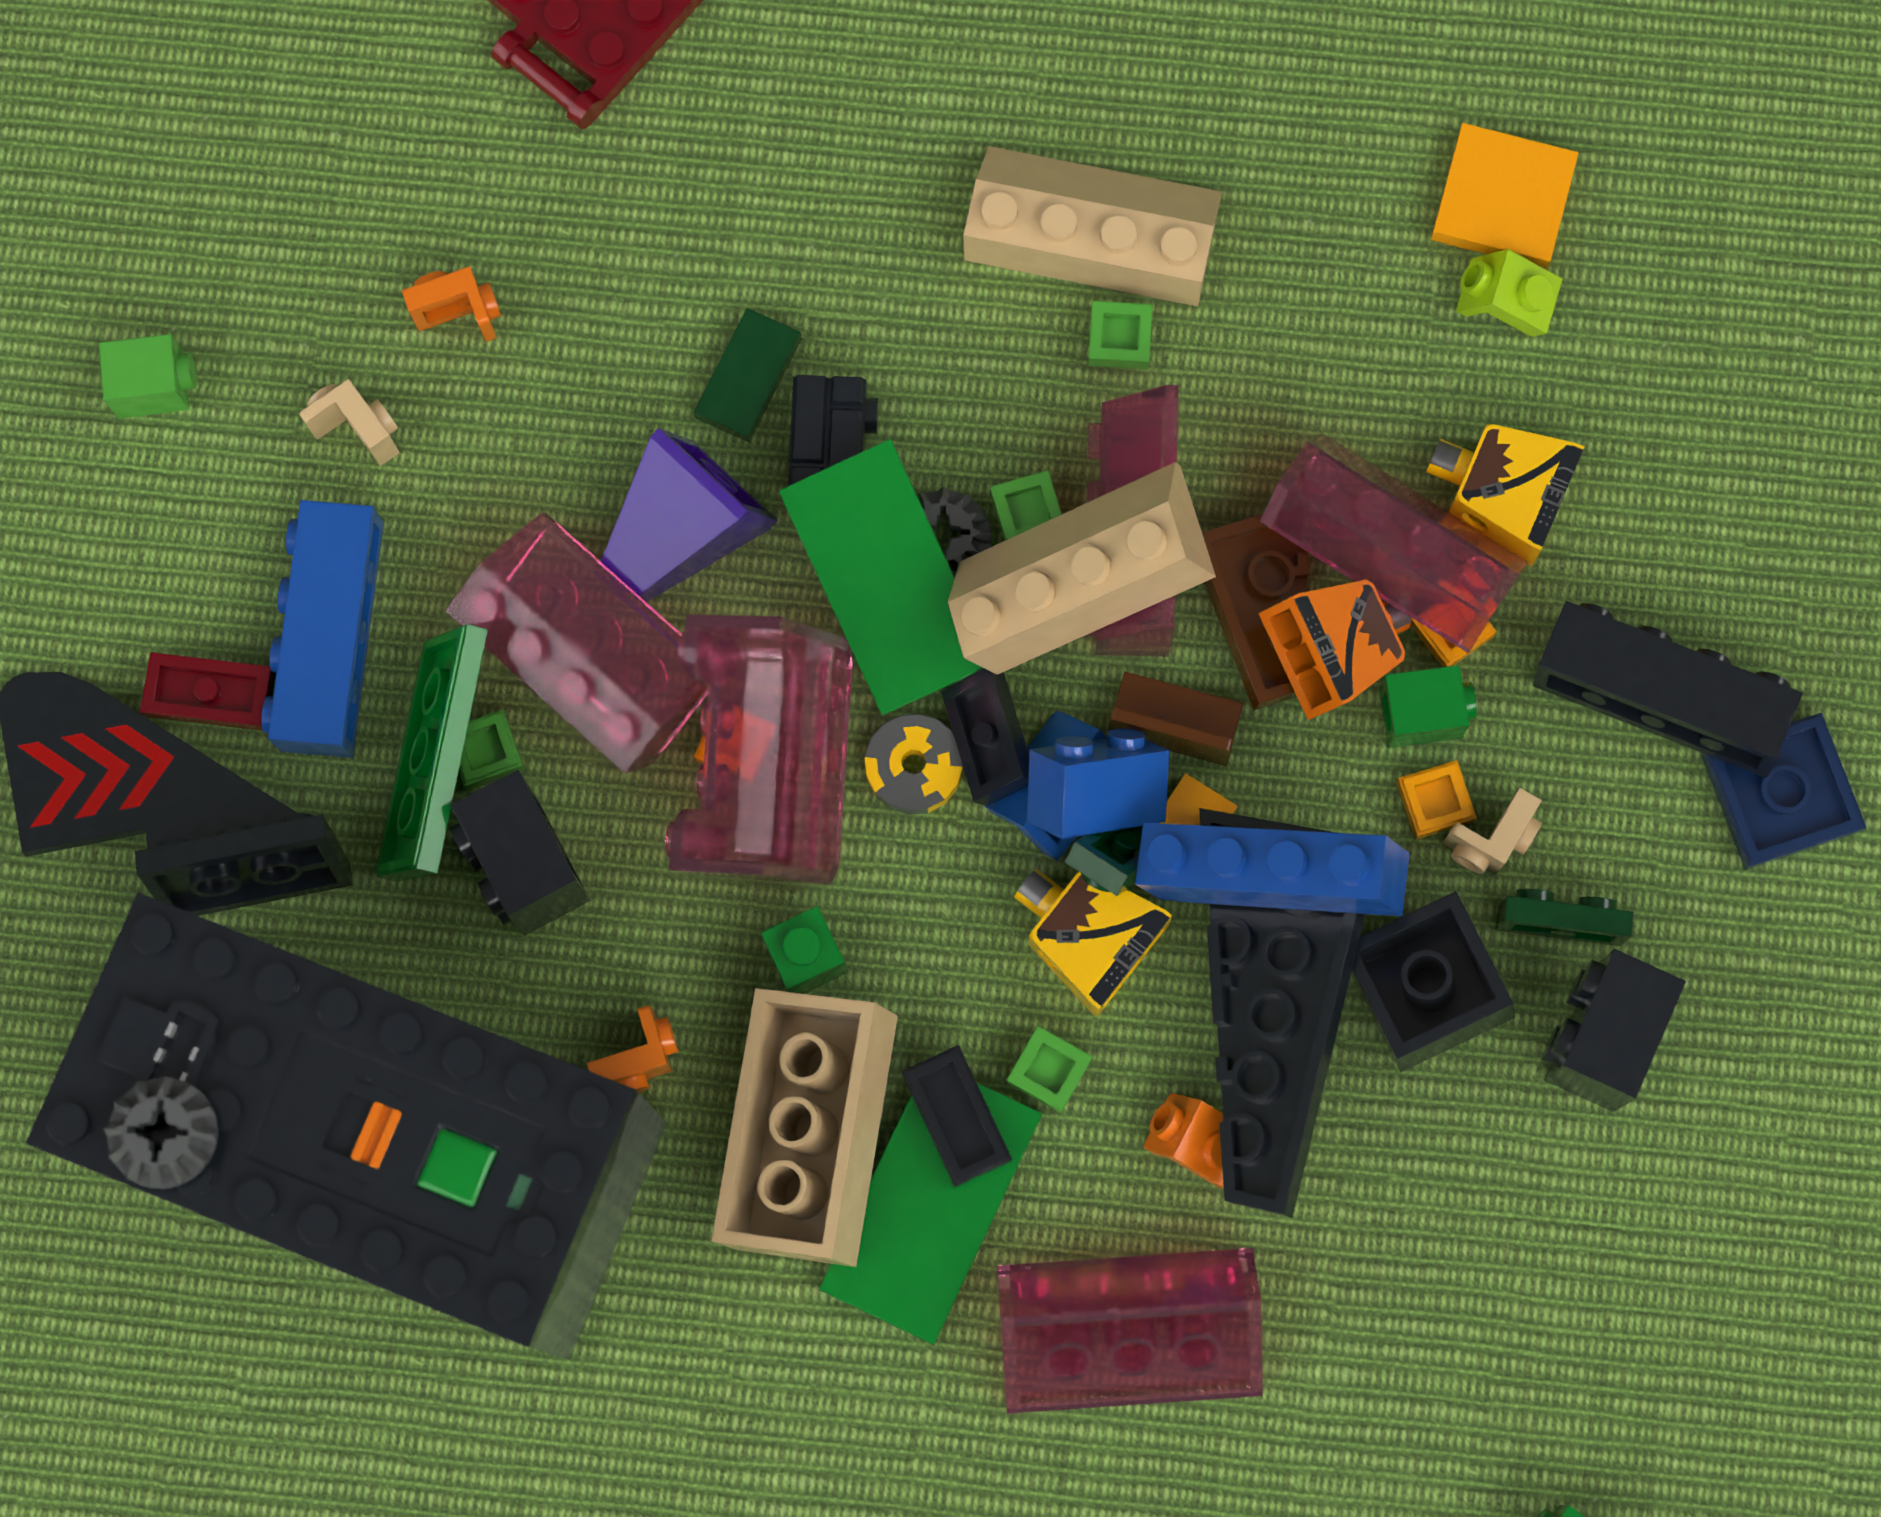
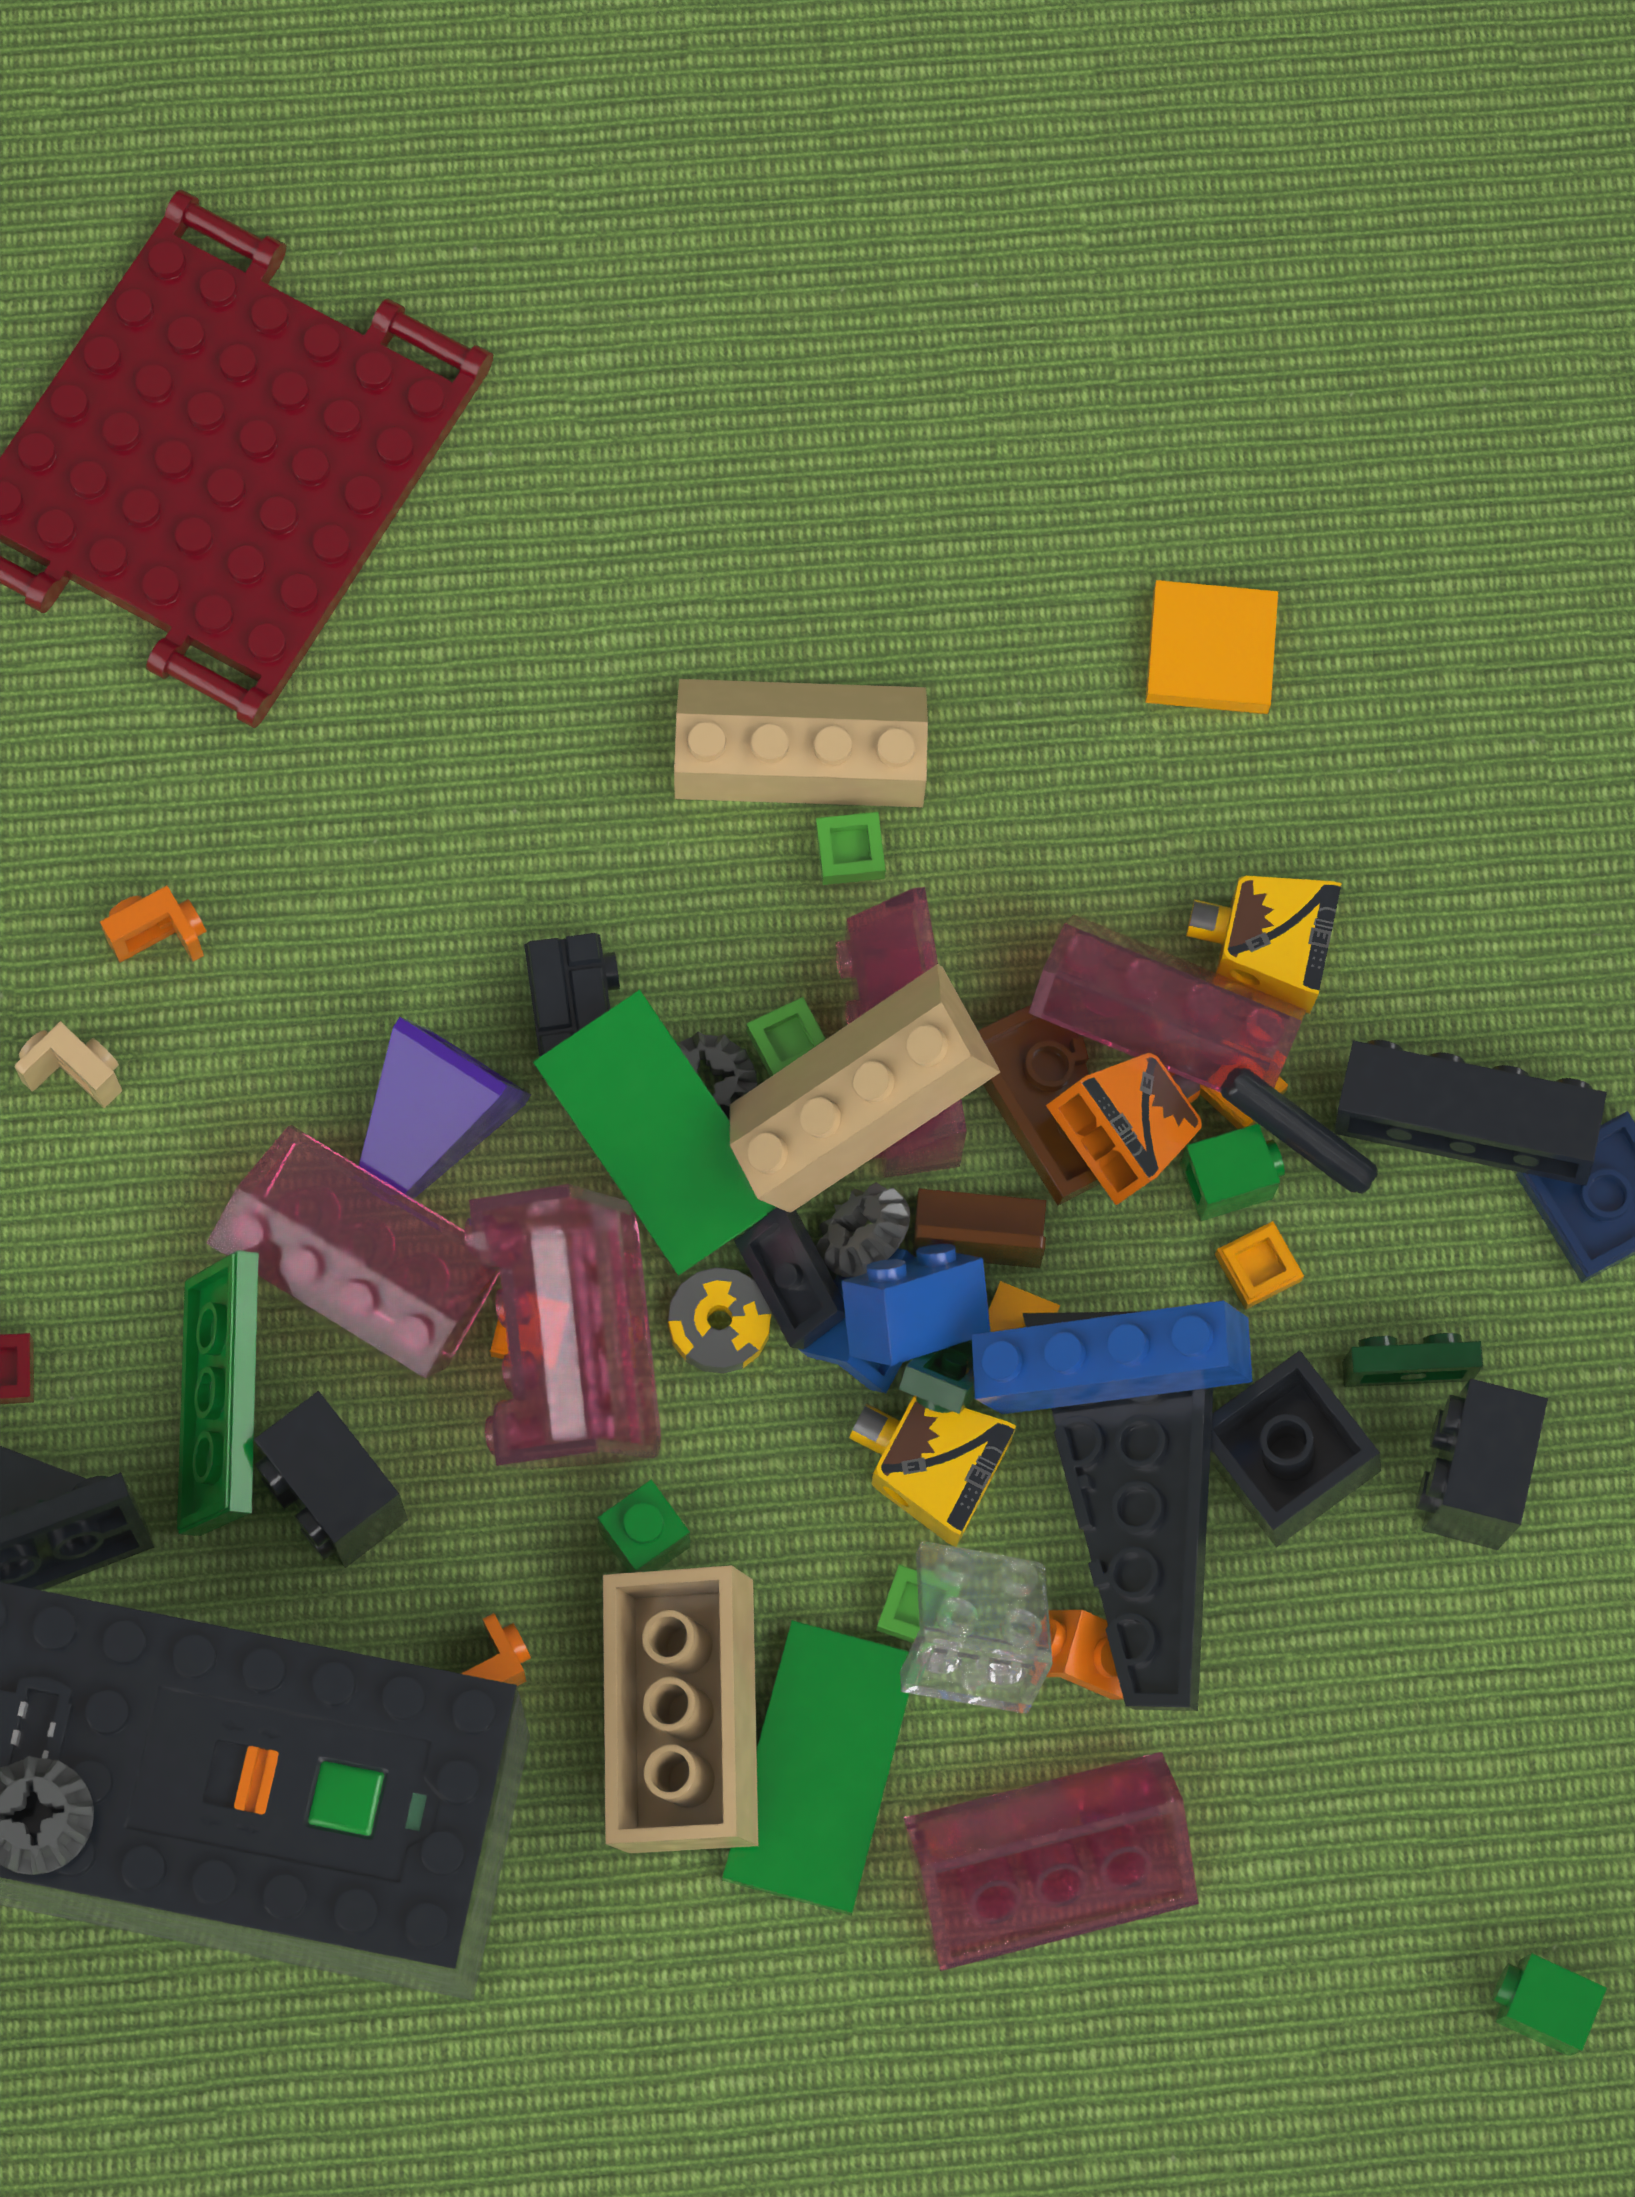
camera: 20 degrees left, 5 degrees down
(324, 629) = (79, 1285): blue brick -> none
(489, 751) = (277, 1382): bright green tile -> none
(747, 375) = (473, 951): dark green tile -> none
(956, 1116) = (832, 1672): black tile -> none
(1050, 716) = (849, 1253): none -> dark grey gear
(1102, 1099) = (979, 1629): none -> clear bracket
(1497, 678) = (1298, 1130): none -> black axle
(1510, 291) = (1235, 740): lime bracket -> none
(1513, 831) = (1343, 1284): tan bracket -> none

